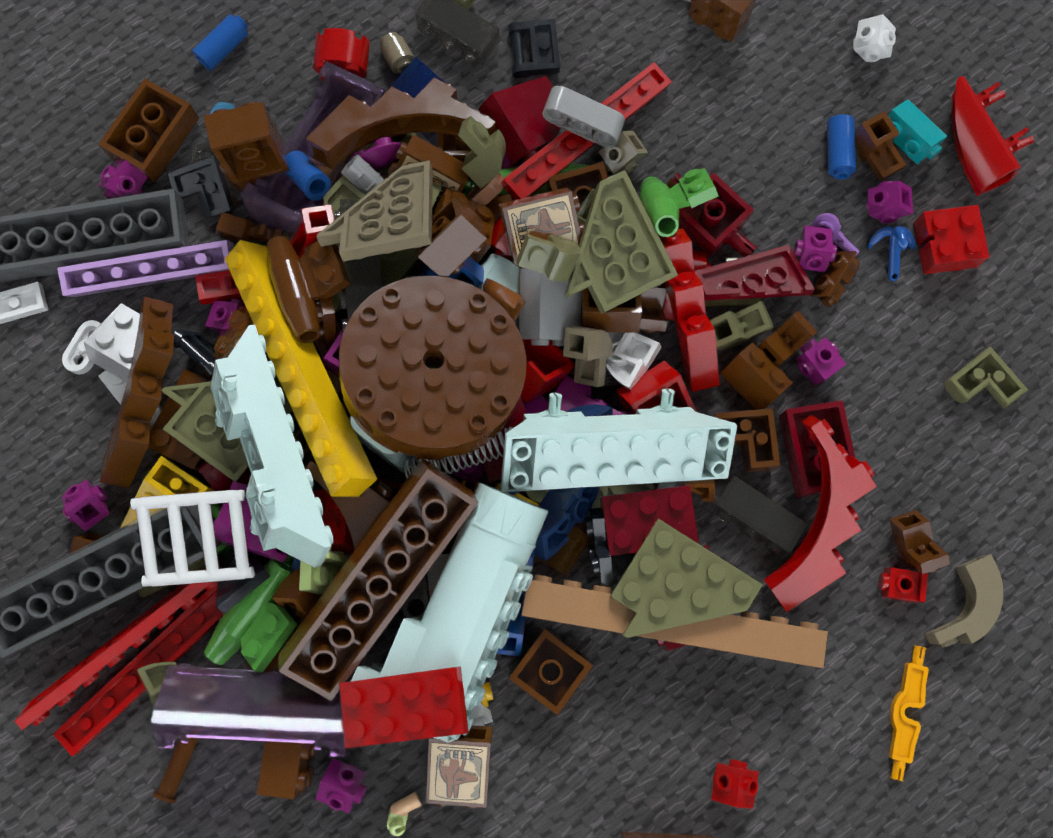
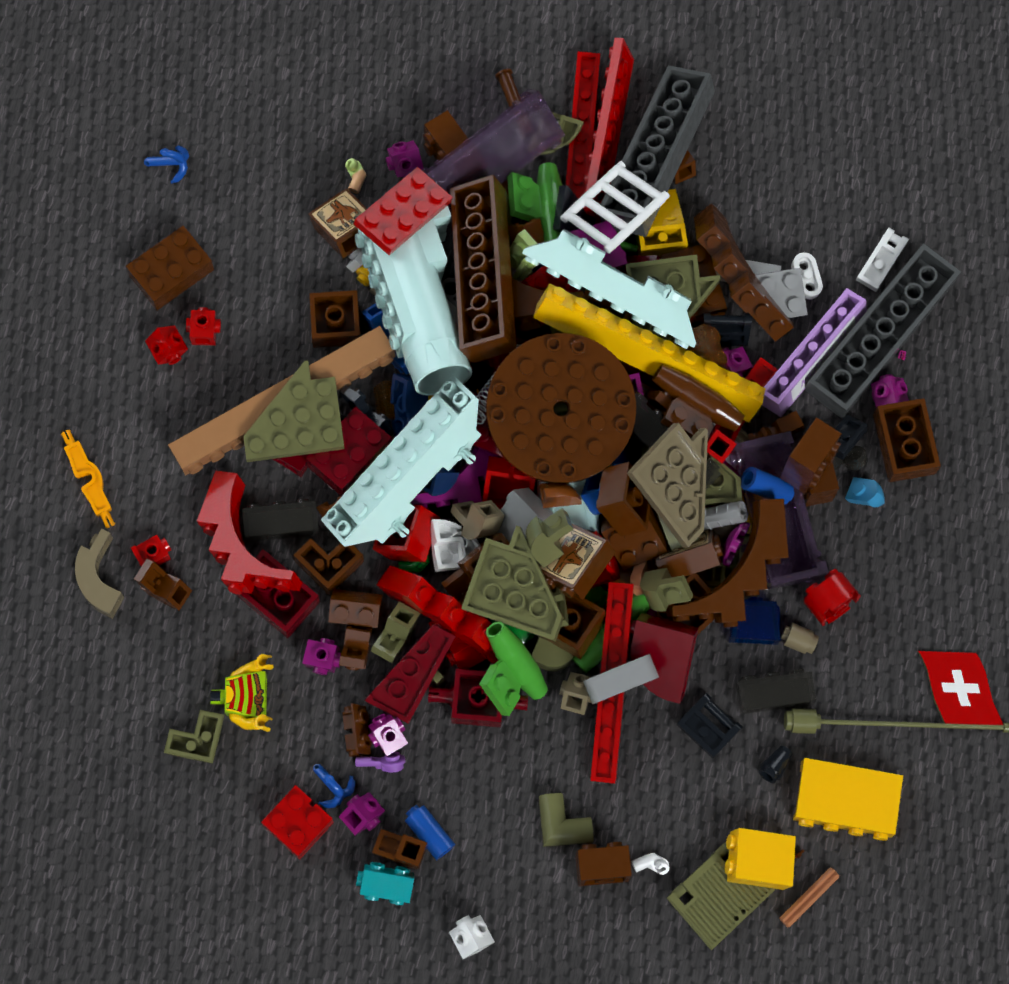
camera: 135 degrees right, 5 degrees down
(85, 504) = (708, 185): magenta brick -> none
(221, 41) = (925, 544): blue brick -> none
(691, 783) = (203, 326): none -> red brick
(728, 67) = (558, 829): none -> olive brick
(915, 379) = (246, 695): none -> torso
(979, 145) = (335, 915): red piece -> none

